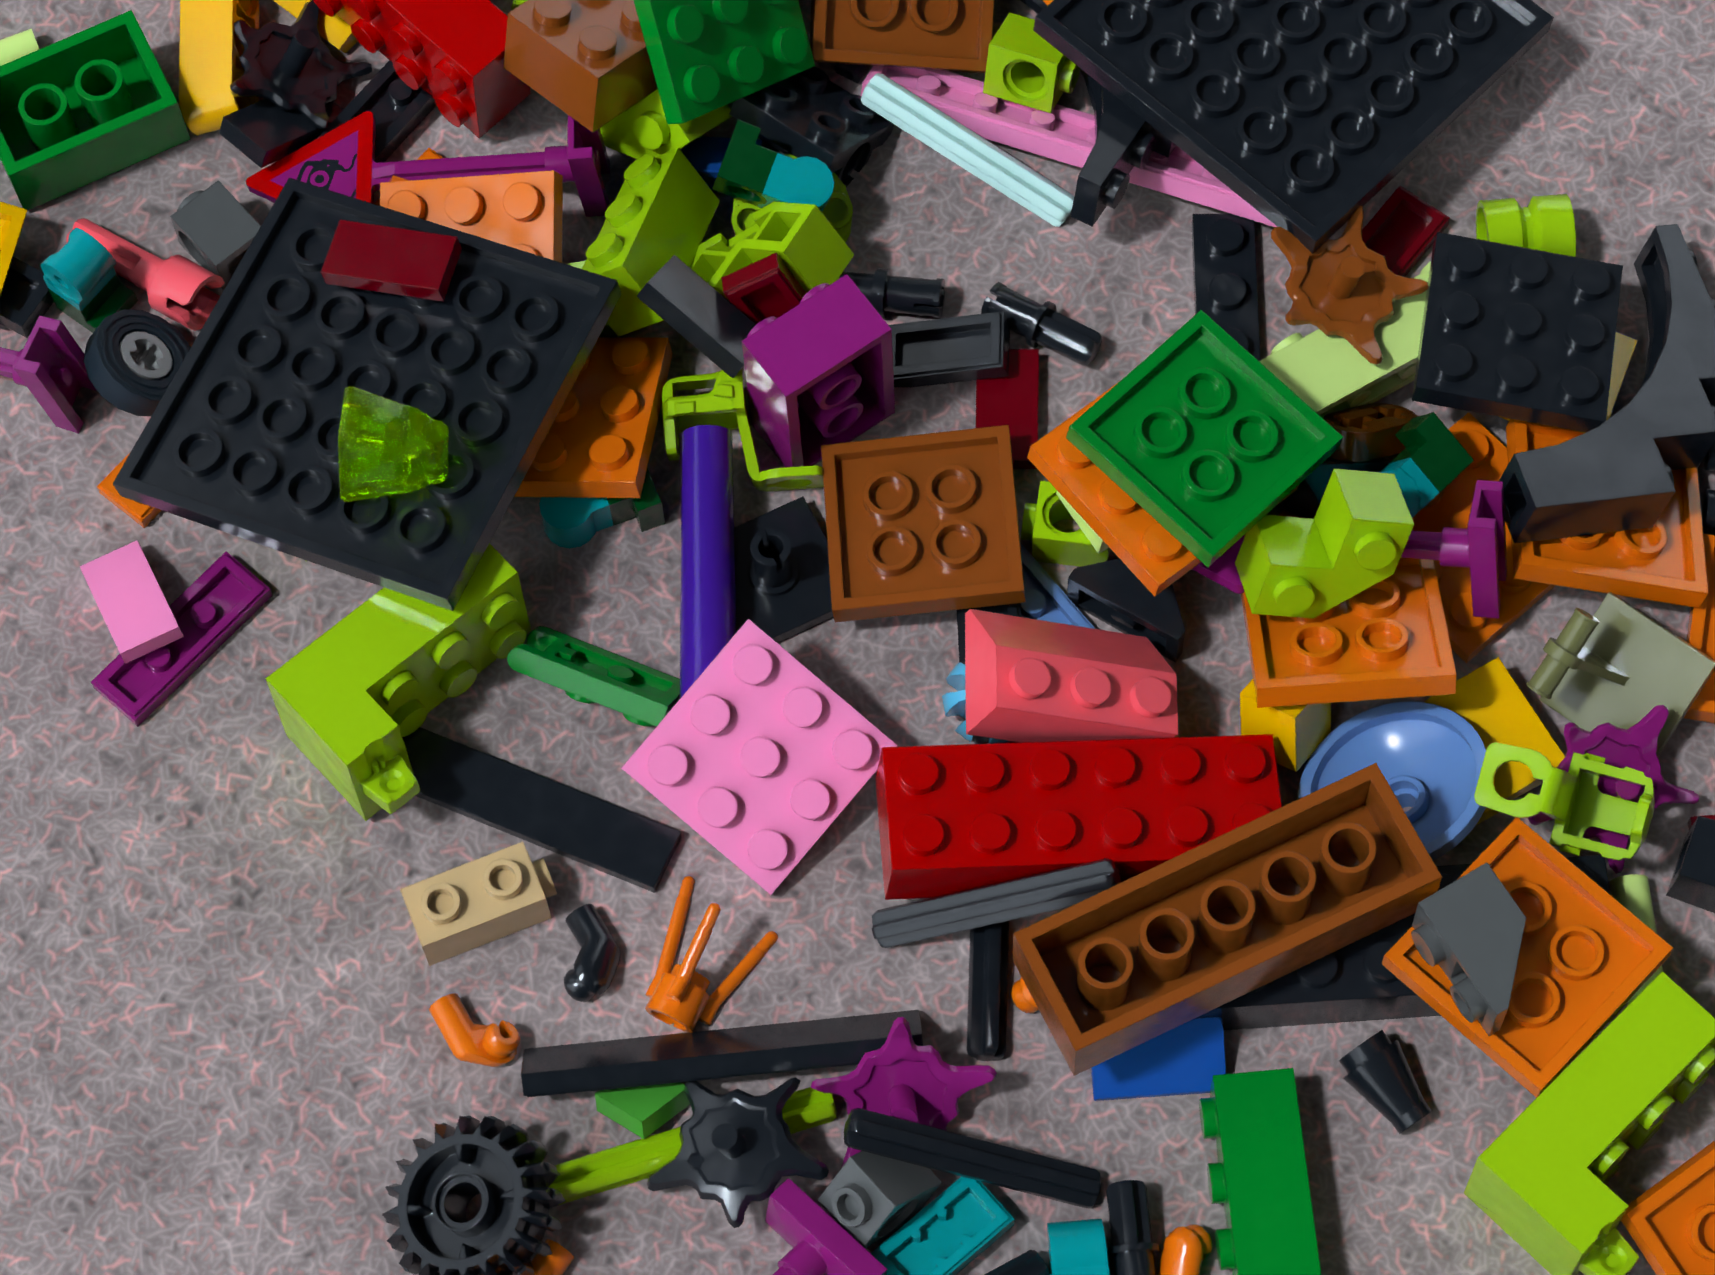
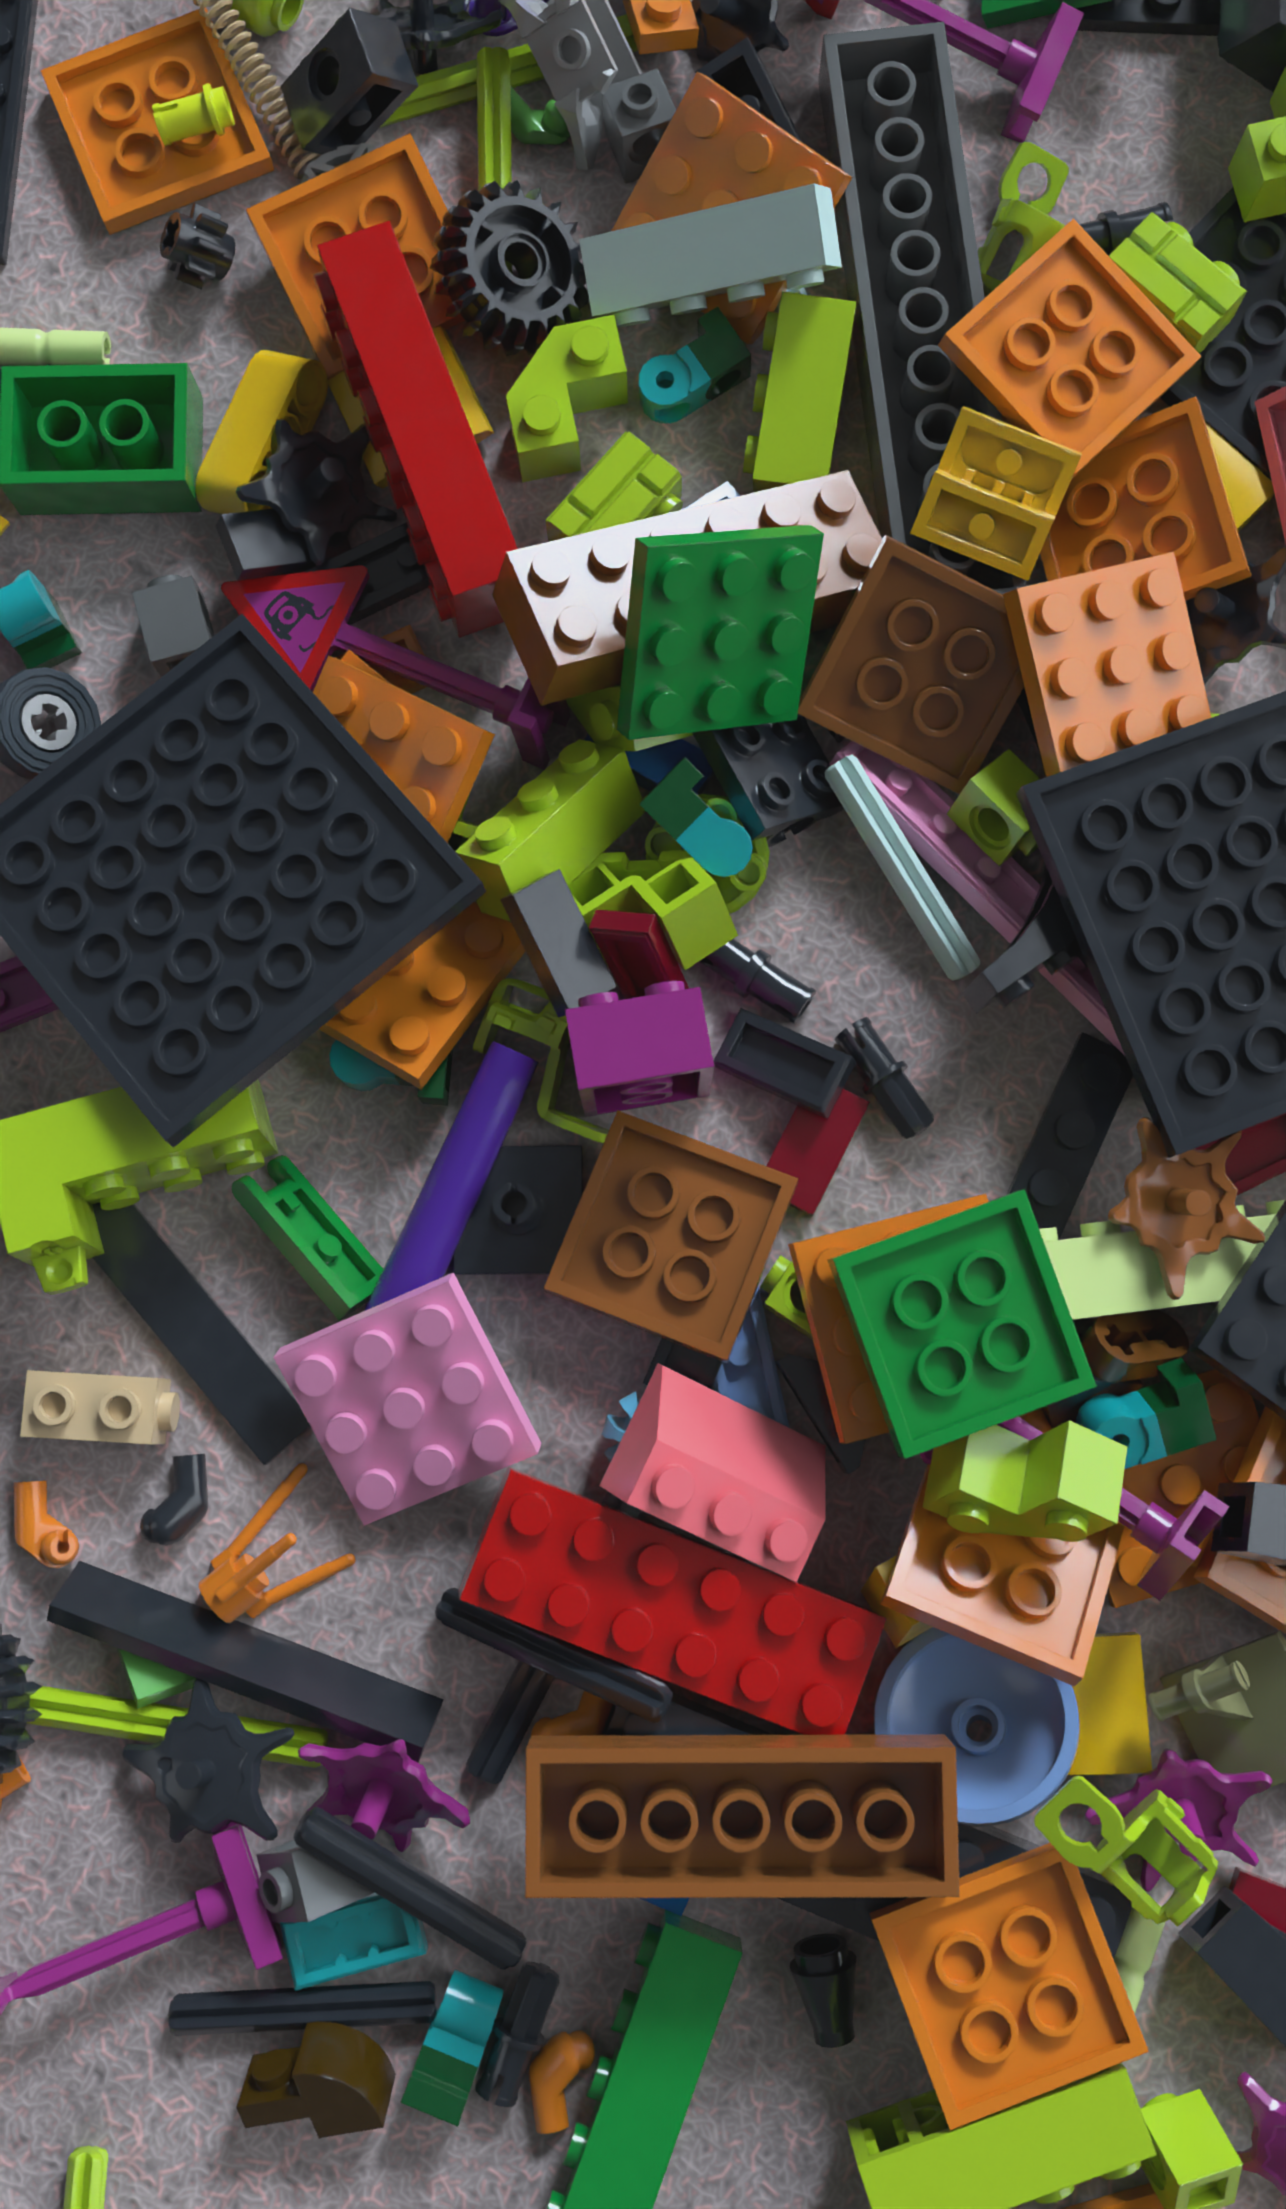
camera: 25 degrees right, 15 degrees up
(172, 285) = (111, 657): coral piece -> none
(387, 447) = (170, 965): clear neon green piece -> none
(391, 260) = (285, 755): dark red tile -> none
(1476, 940) = (964, 1970): dark grey slope -> none

